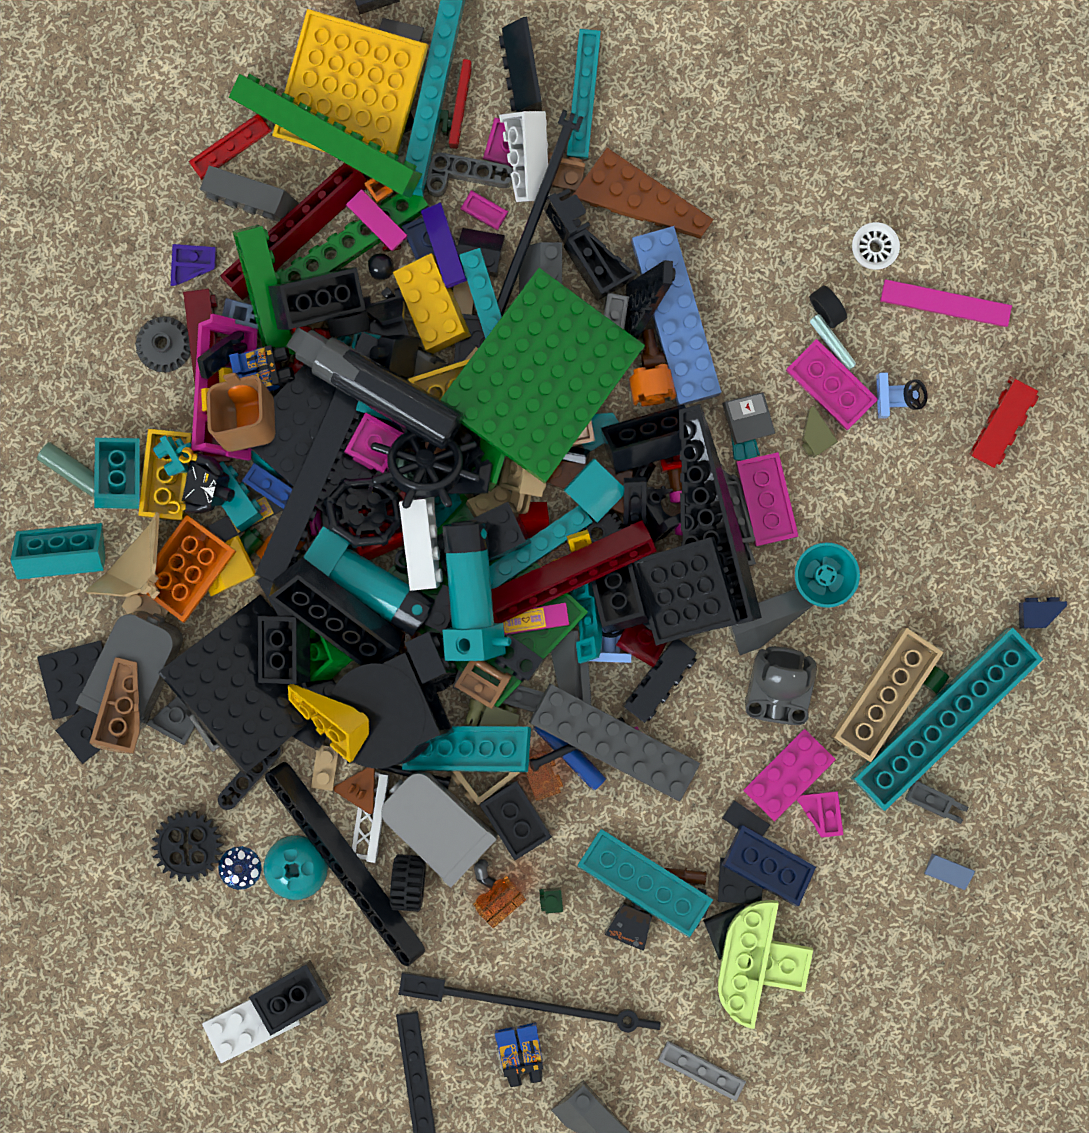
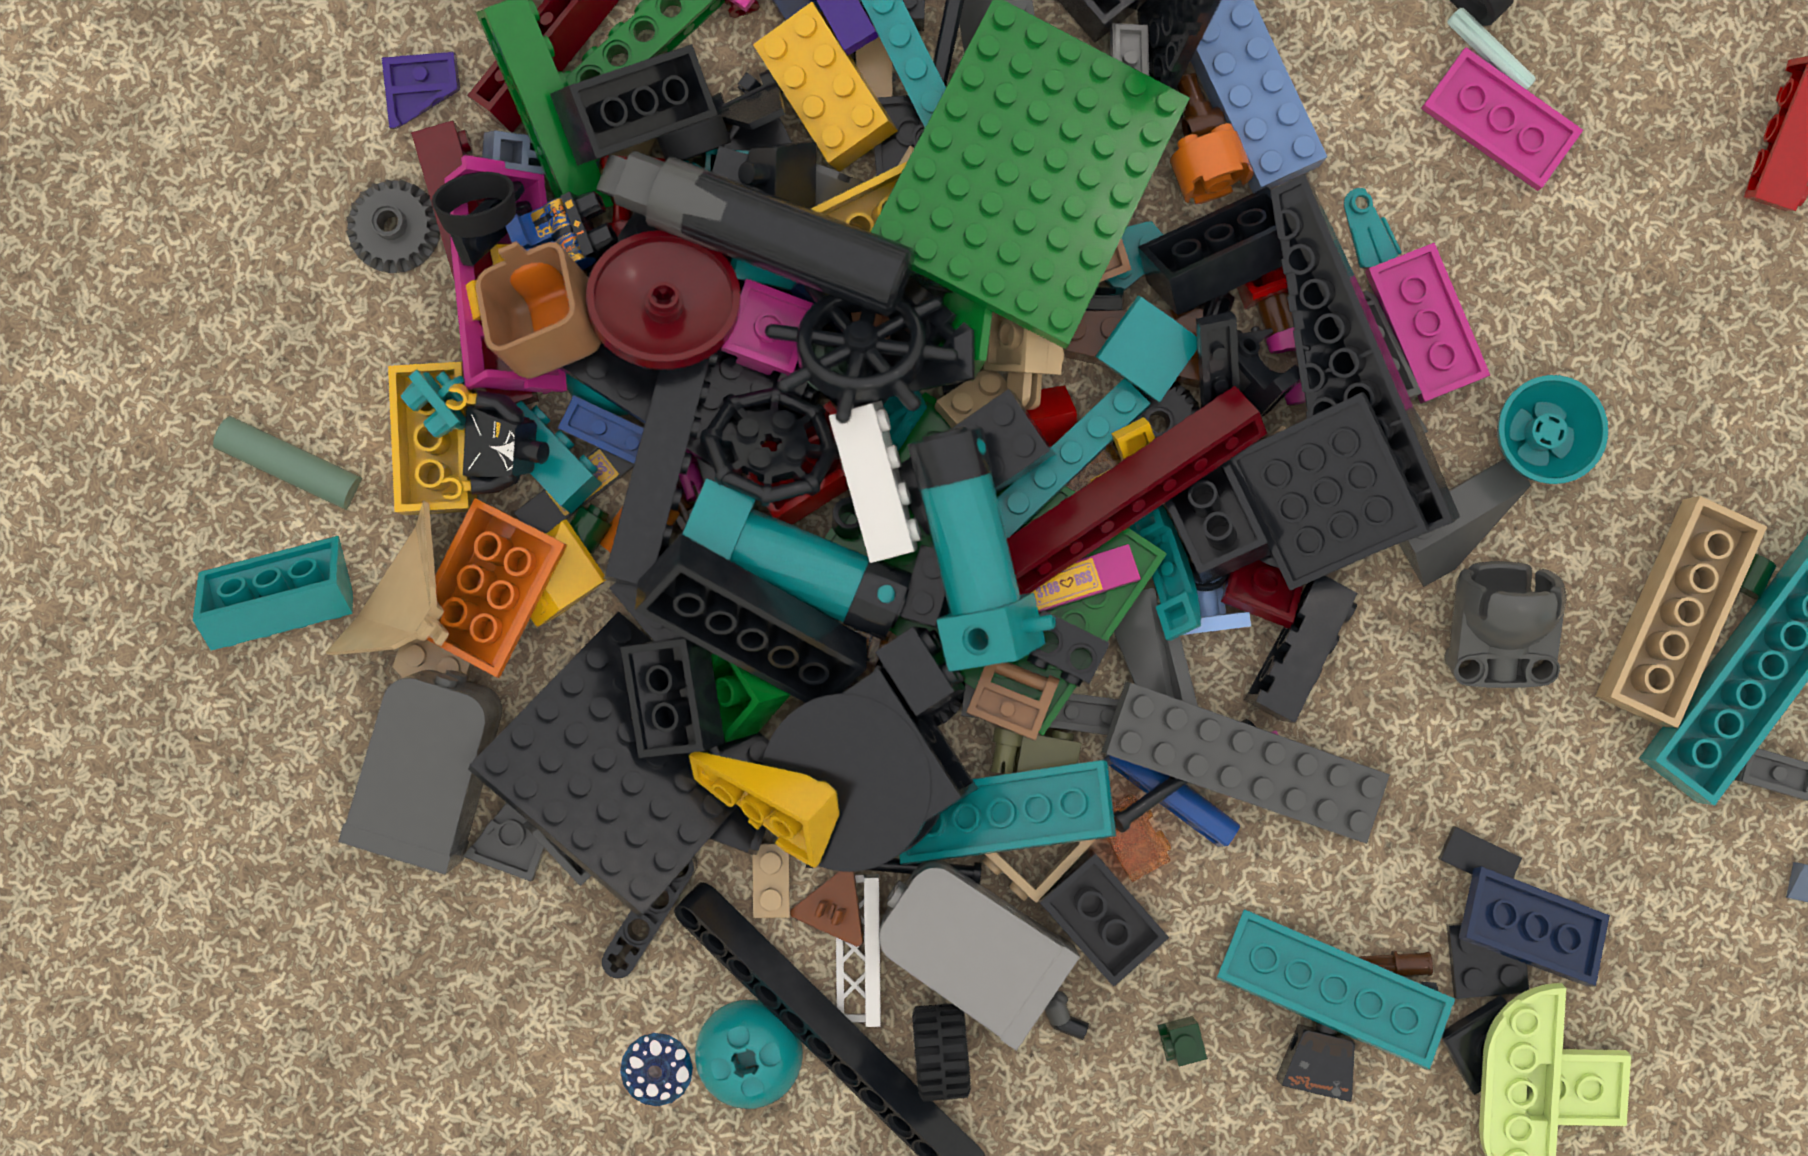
camera: 10 degrees left, 0 degrees up
(66, 676) = (317, 797): black plate -> none
(77, 734) = (366, 889): black plate -> none
(117, 473) = (347, 448): teal brick -> none
(118, 717) = (413, 853): medium nougat wedge -> none
(167, 846) = (531, 1052): black gear -> none
(214, 332) = (470, 188): none -> black tyre
(314, 419) = (662, 300): none -> dark red dish
(380, 266) = (731, 42): black piece -> none
(499, 901) = (1096, 1058): clear orange brick -> none
(748, 418) = (1375, 194): dark grey tile -> none
(789, 775) = (1540, 771): dark pink plate -> none
(816, 434) = (1491, 202): olive slope -> none
(823, 812) = (1606, 822): dark pink wing -> none
(898, 395) = (1611, 120): light blue piece -> none

